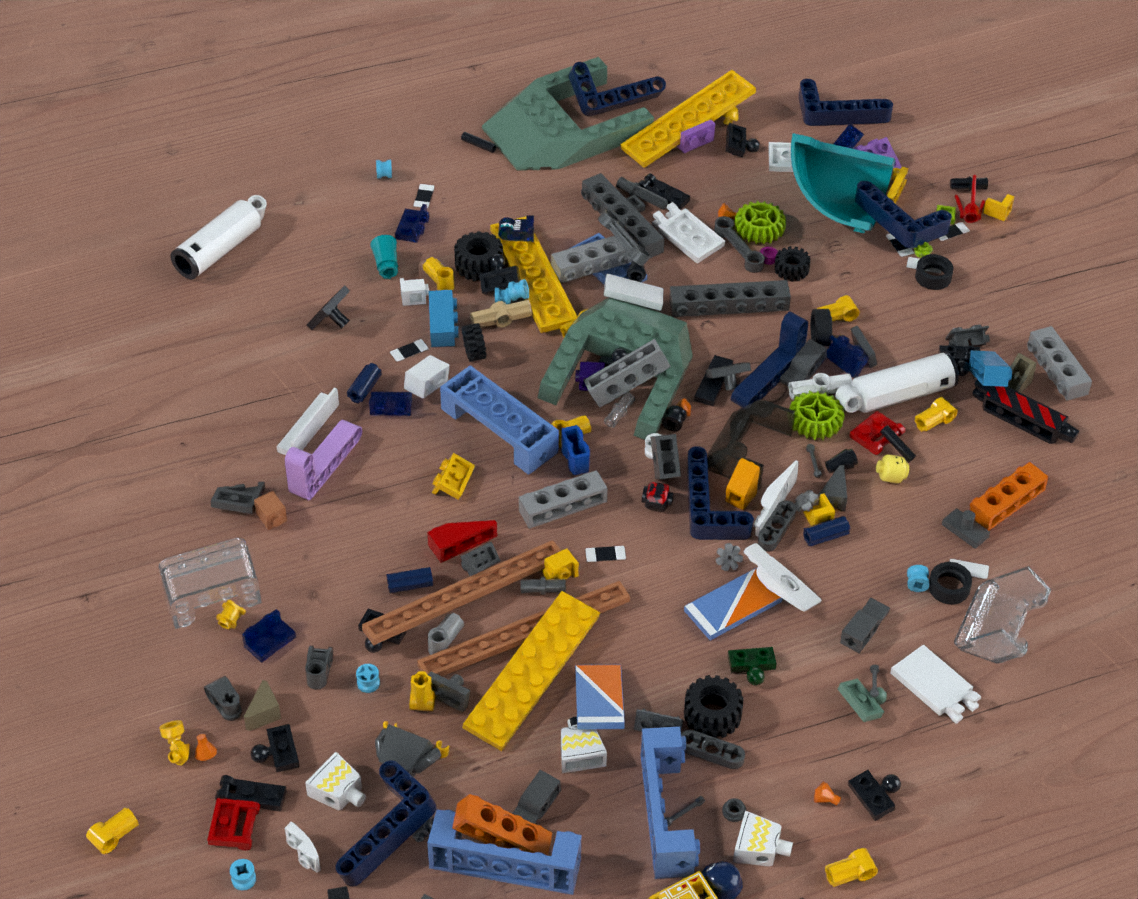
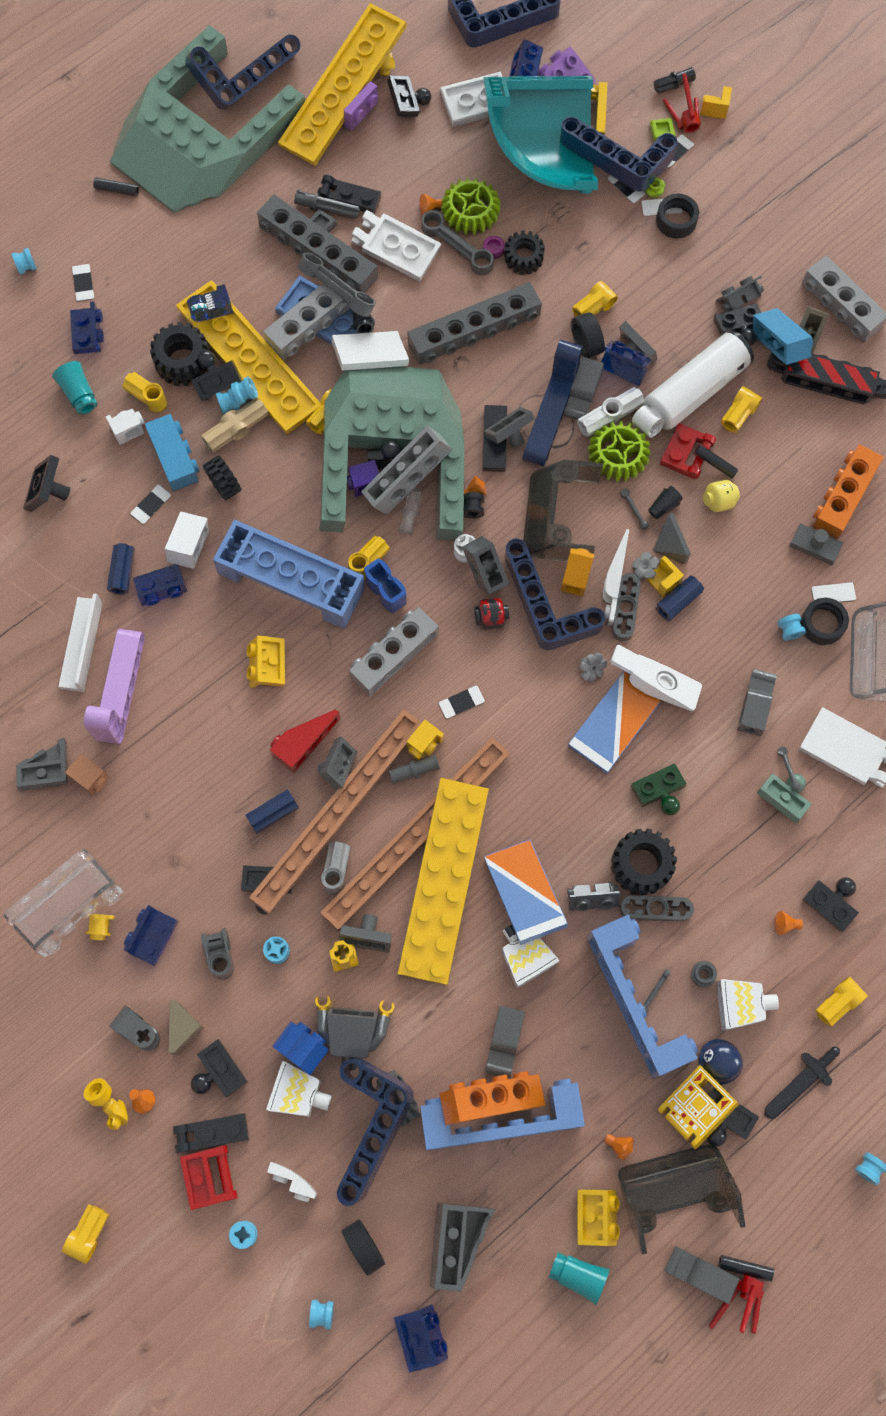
camera: 20 degrees left, 25 degrees up
(356, 747) = (300, 1047): none -> blue brick

